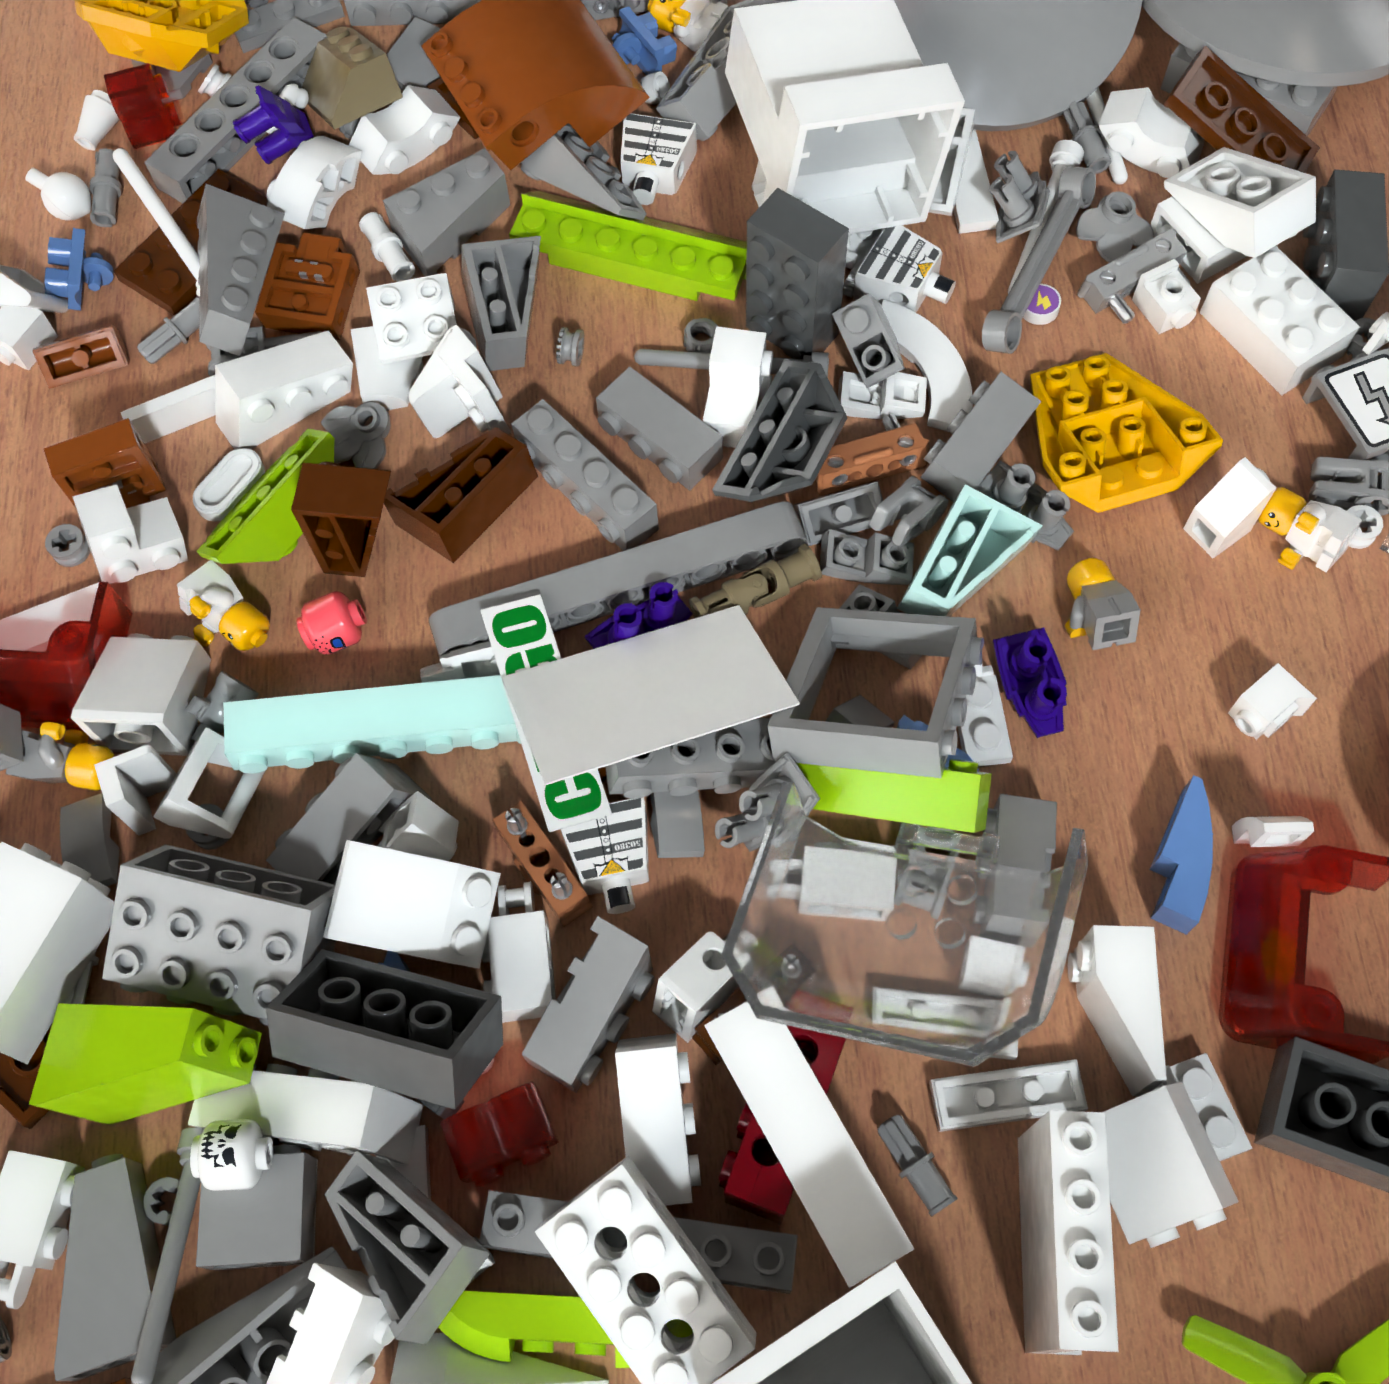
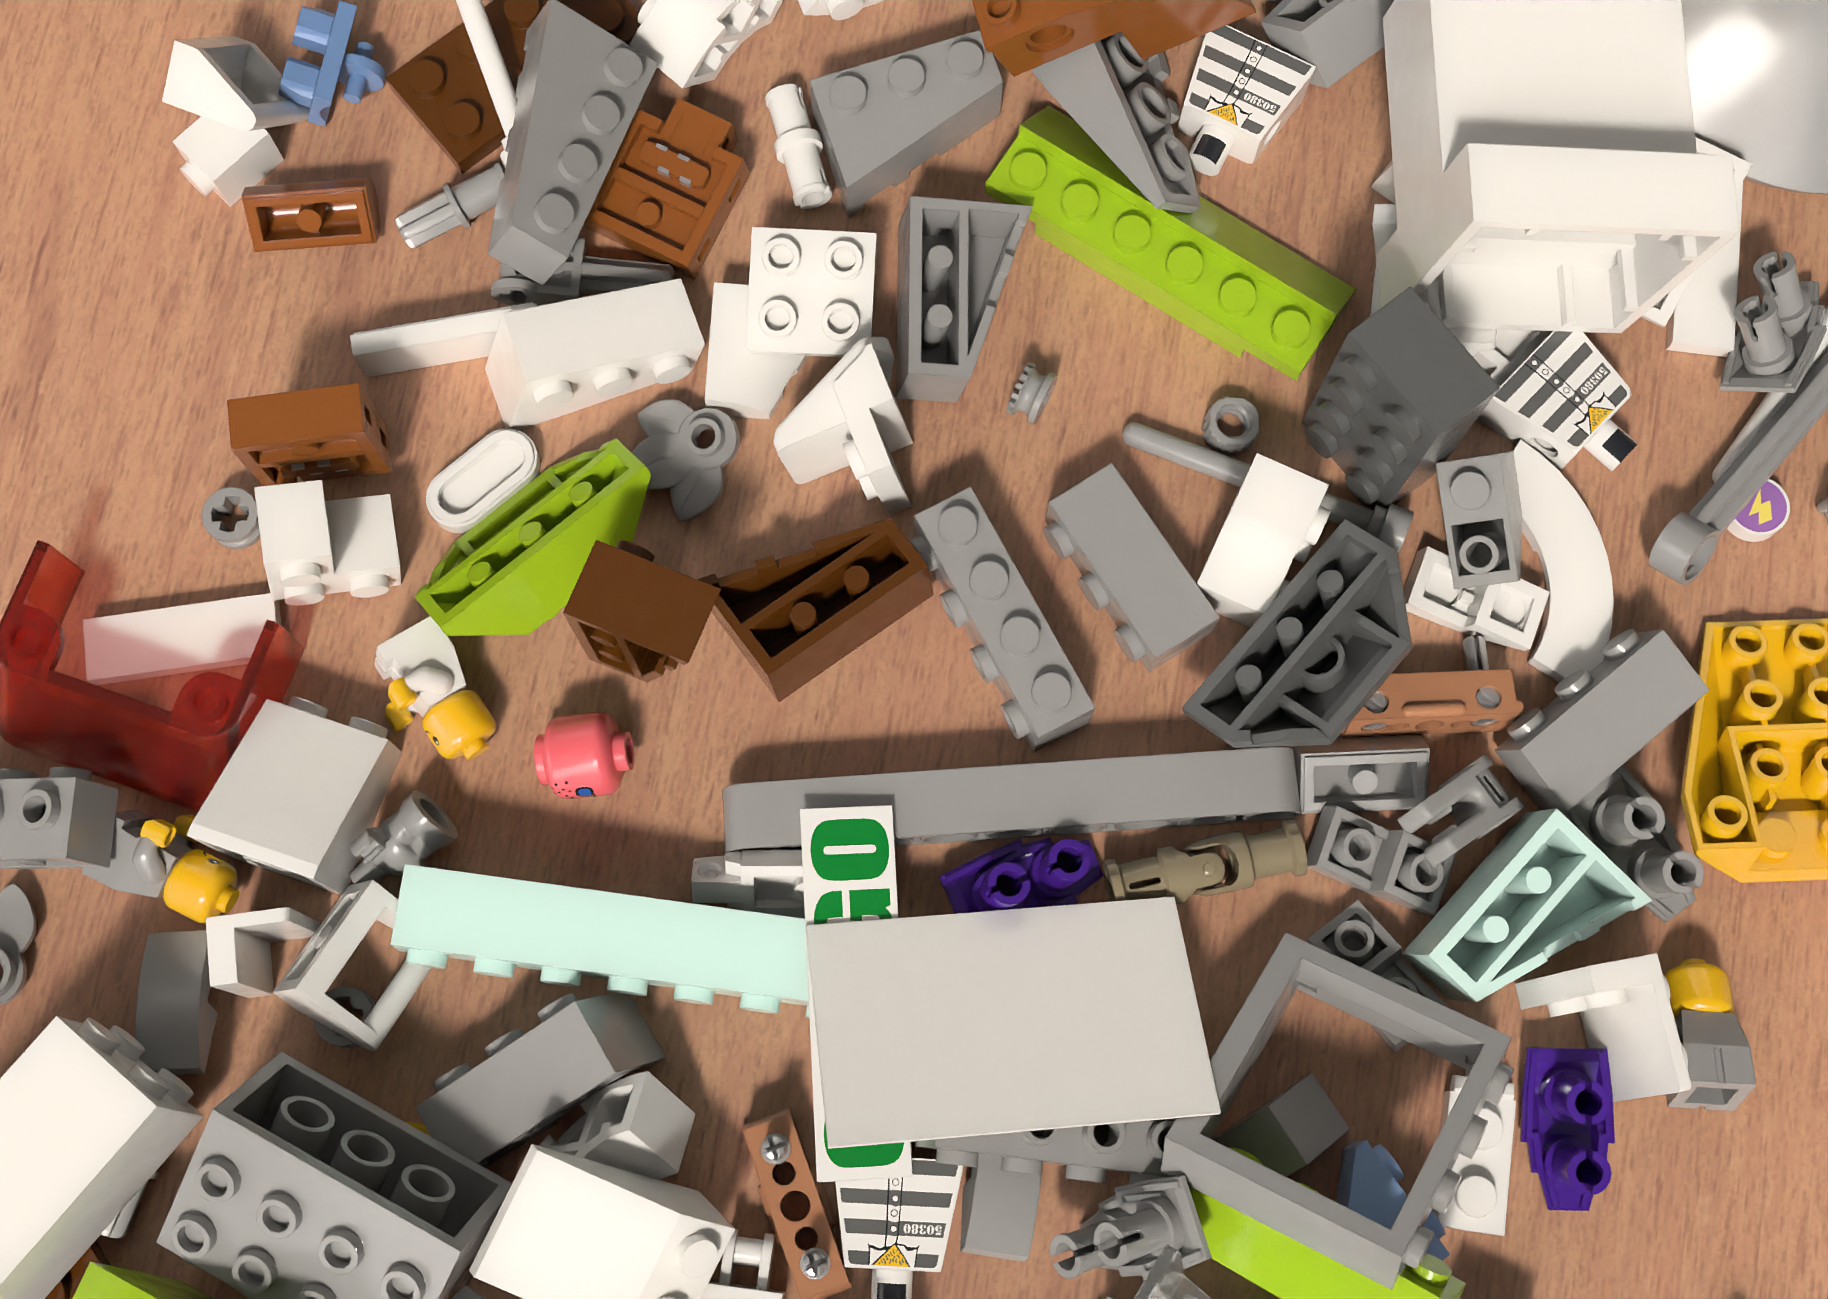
camera: 10 degrees right, 10 degrees up
(1045, 597) = (1627, 1013): none -> white bracket

